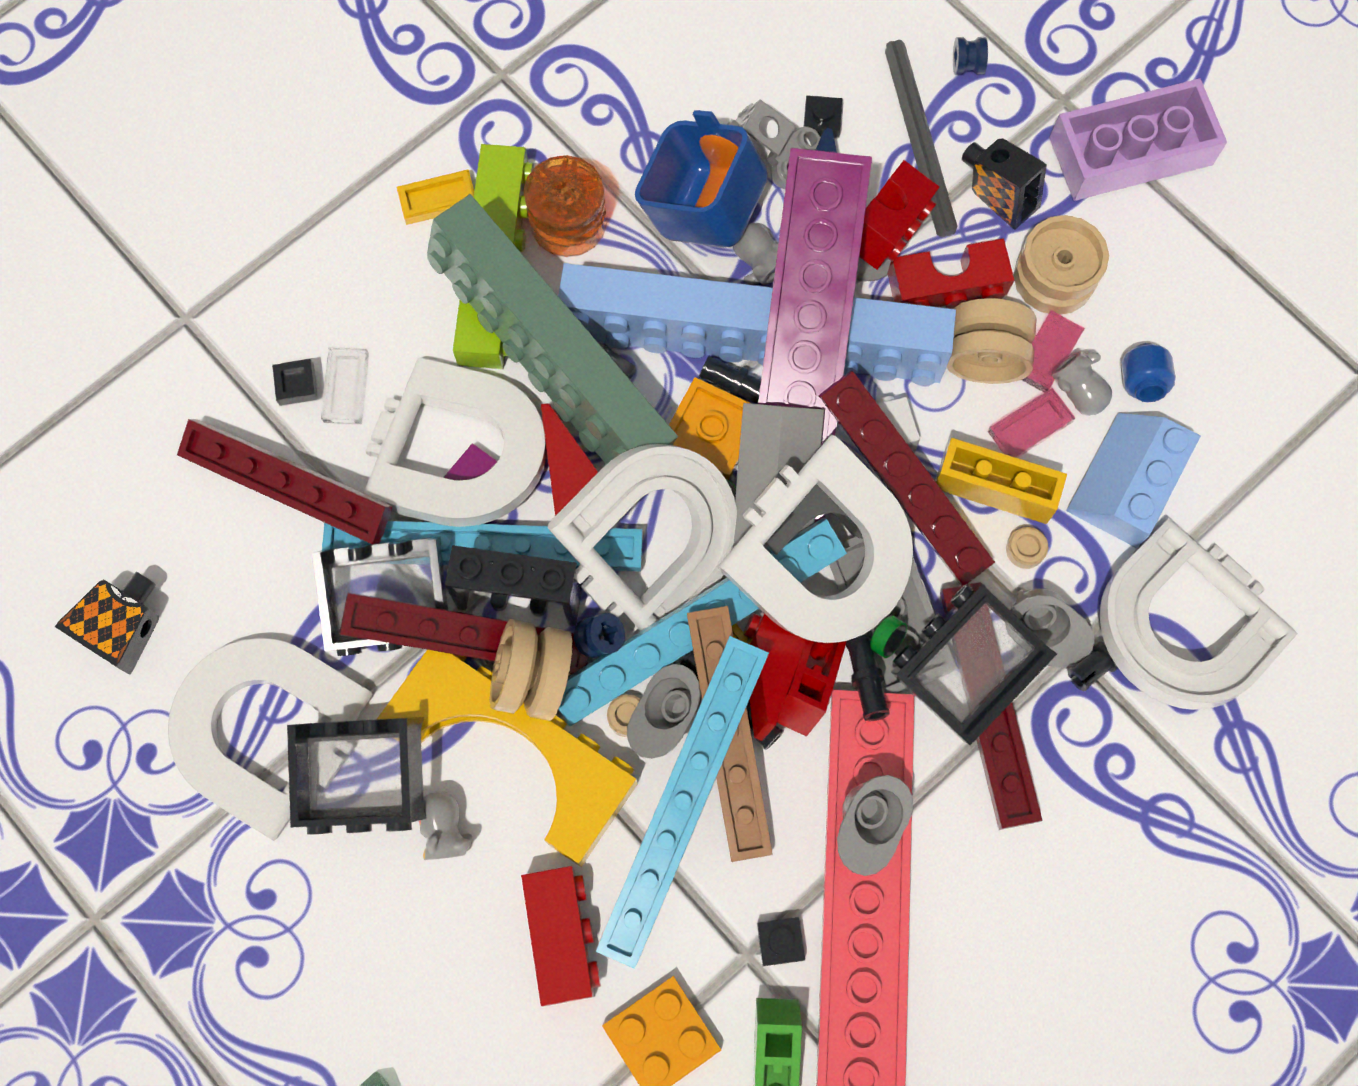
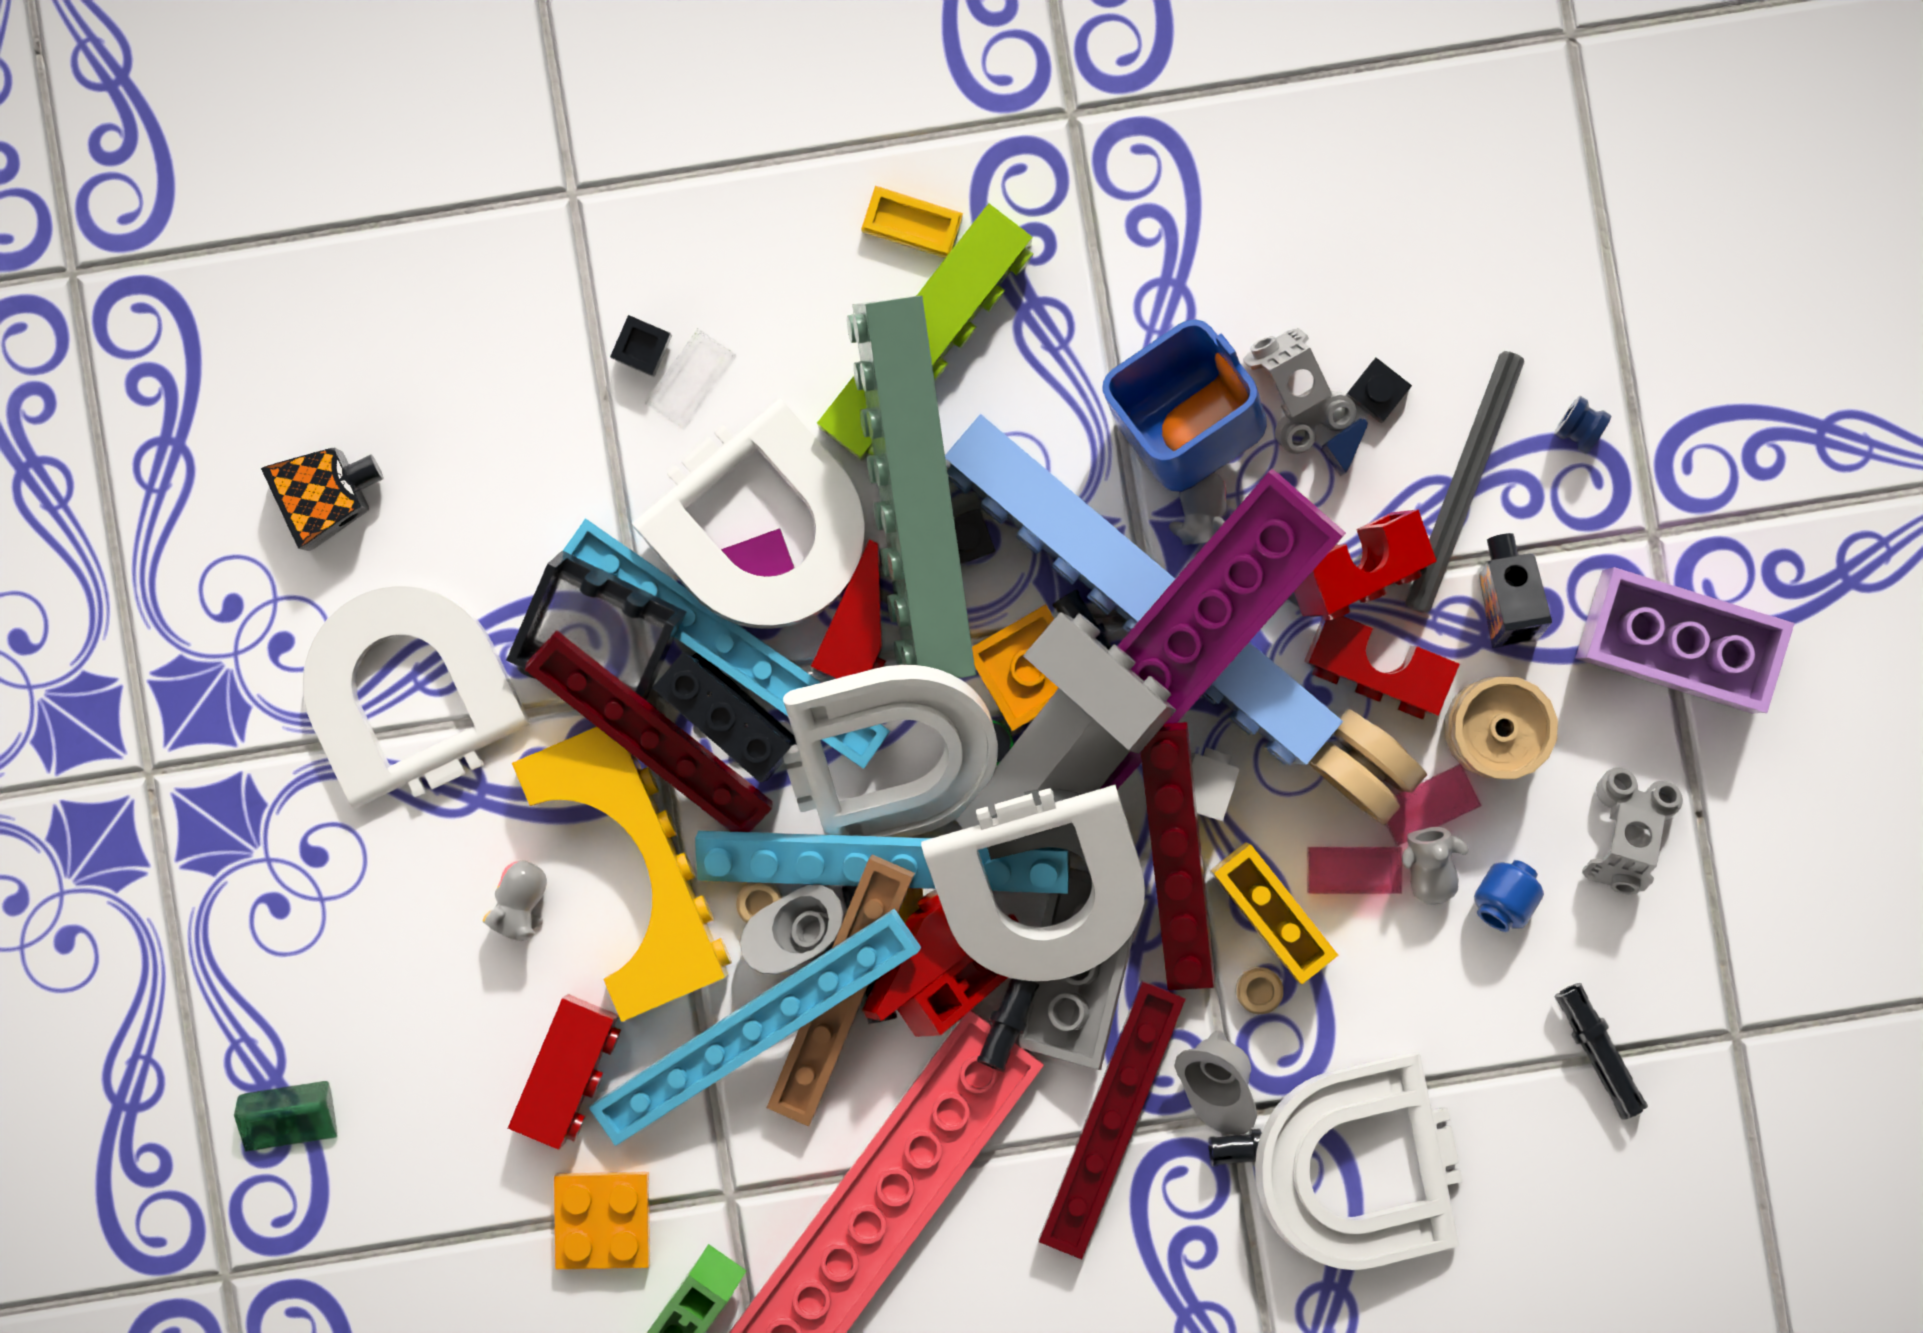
camera: 35 degrees right, 15 degrees up
(285, 481) = (566, 454): dark red plate -> none
(355, 775) = (465, 805): window -> none
(531, 670) = (685, 817): tan wheel -> none
(566, 205) = (1026, 357): clear orange wheel -> none
(589, 632) = (771, 805): dark blue wheel -> none
(770, 374) = (1101, 681): none -> light grey brick
(780, 941) = (766, 1206): black plate -> none
(873, 823) = (914, 1166): light grey piece -> none
(888, 636) = (1054, 997): green tile -> none
(972, 662) = (1113, 1077): window -> none
(1133, 476) = (1414, 989): light blue slope -> none
(1212, 300) = (1627, 866): none -> light grey piece
(1275, 430) = (1593, 1036): none -> black pin

